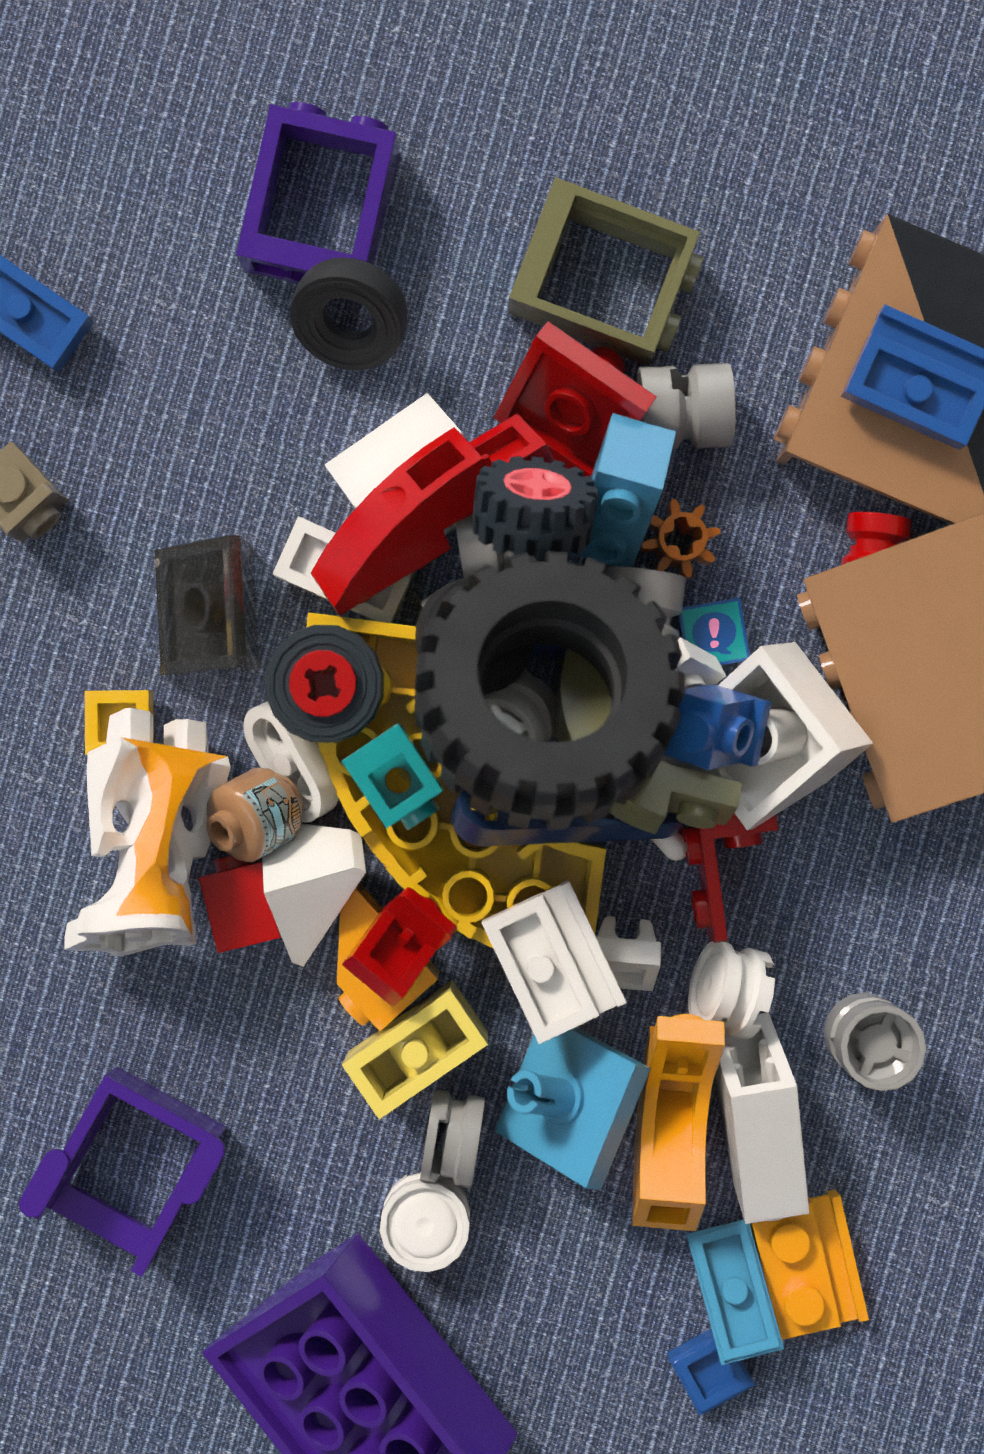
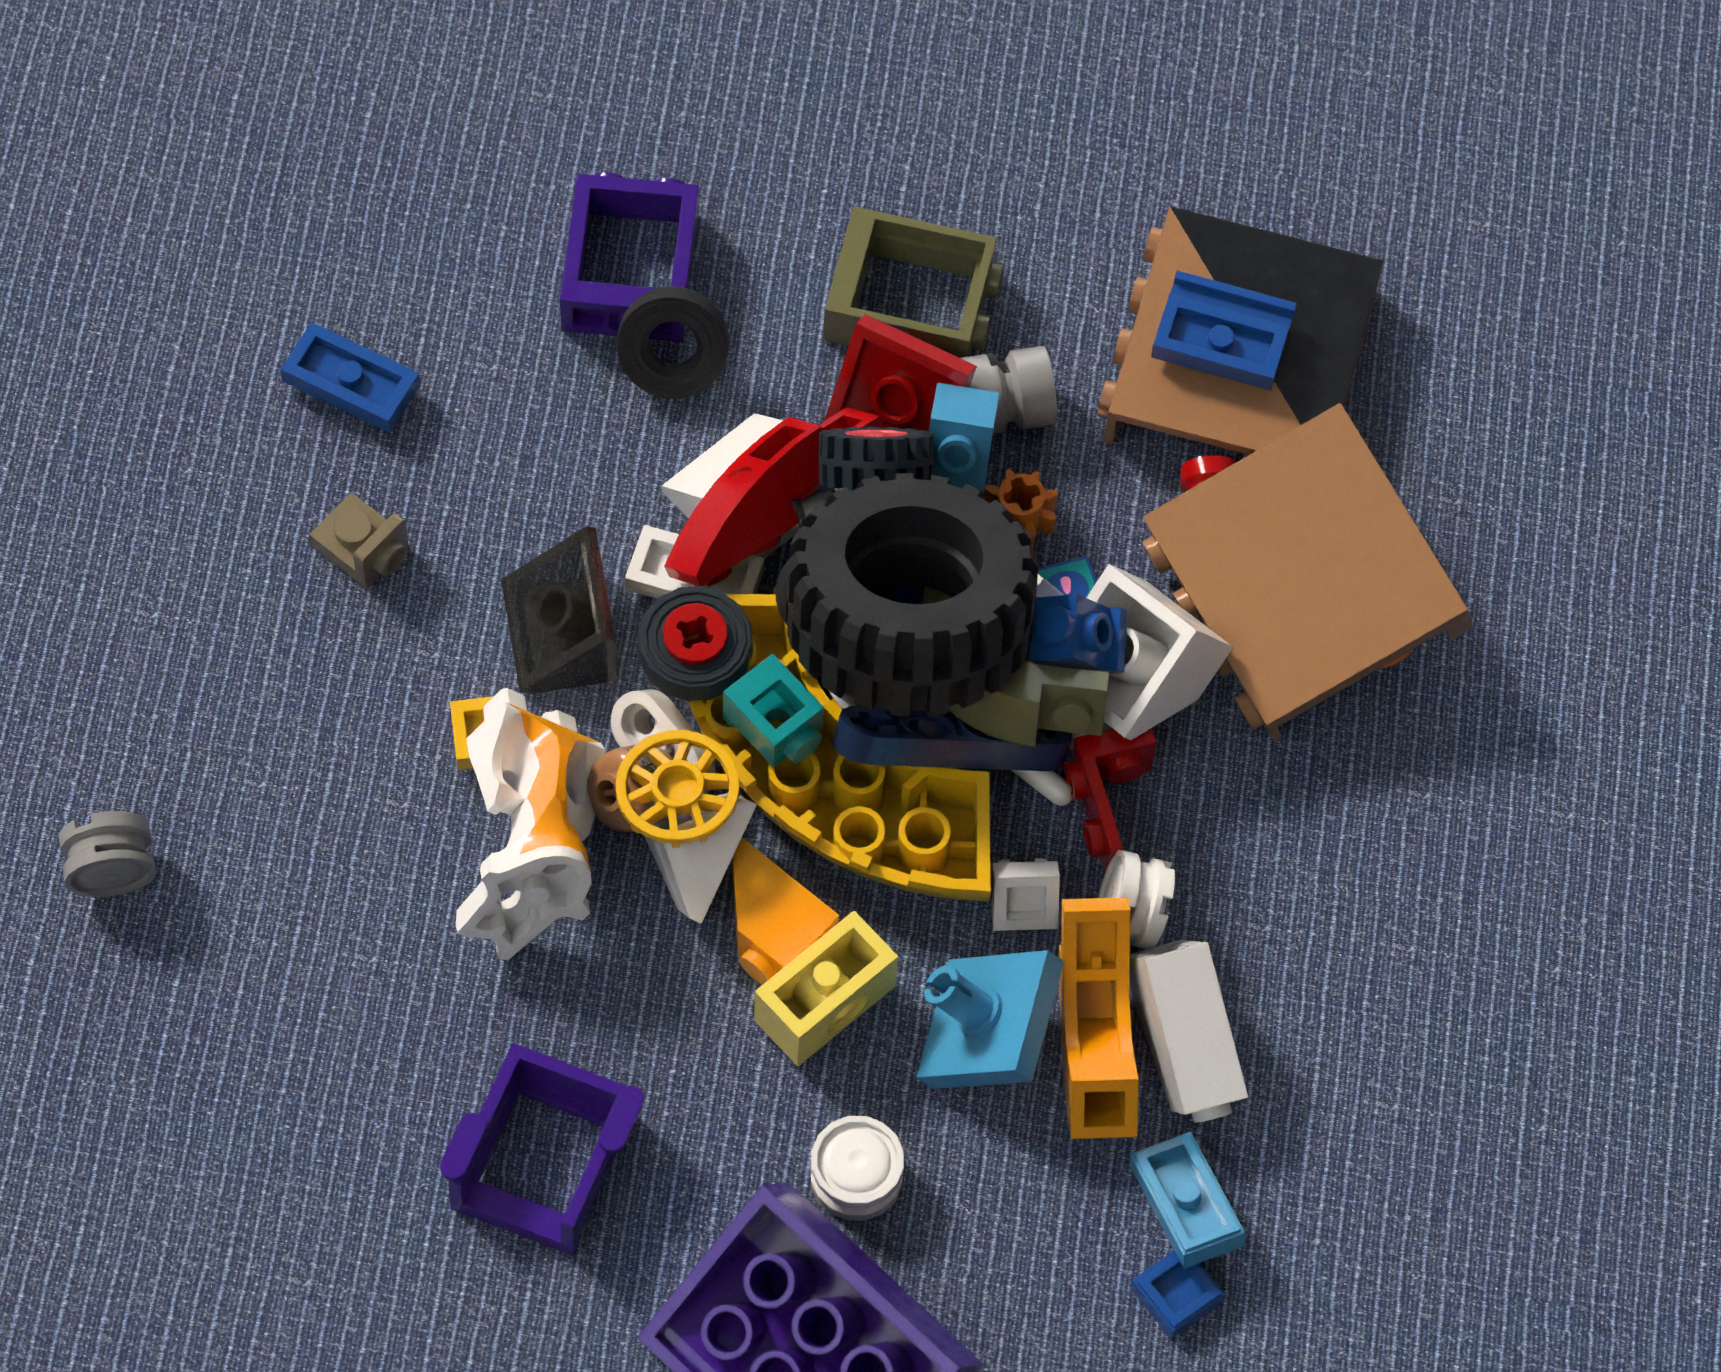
camera: 15 degrees left, 25 degrees down
(237, 904) = (631, 883): red brick -> none
(285, 851) = (677, 787): none -> yellow wheel
(399, 945) = (800, 868): red bracket -> none
(459, 1139) = (881, 1074): light grey wheel -> none
(553, 961) = (952, 866): white plate -> none
(810, 1268) = (1263, 1172): light orange plate -> none
(874, 1041) = (1286, 933): light grey wheel -> none

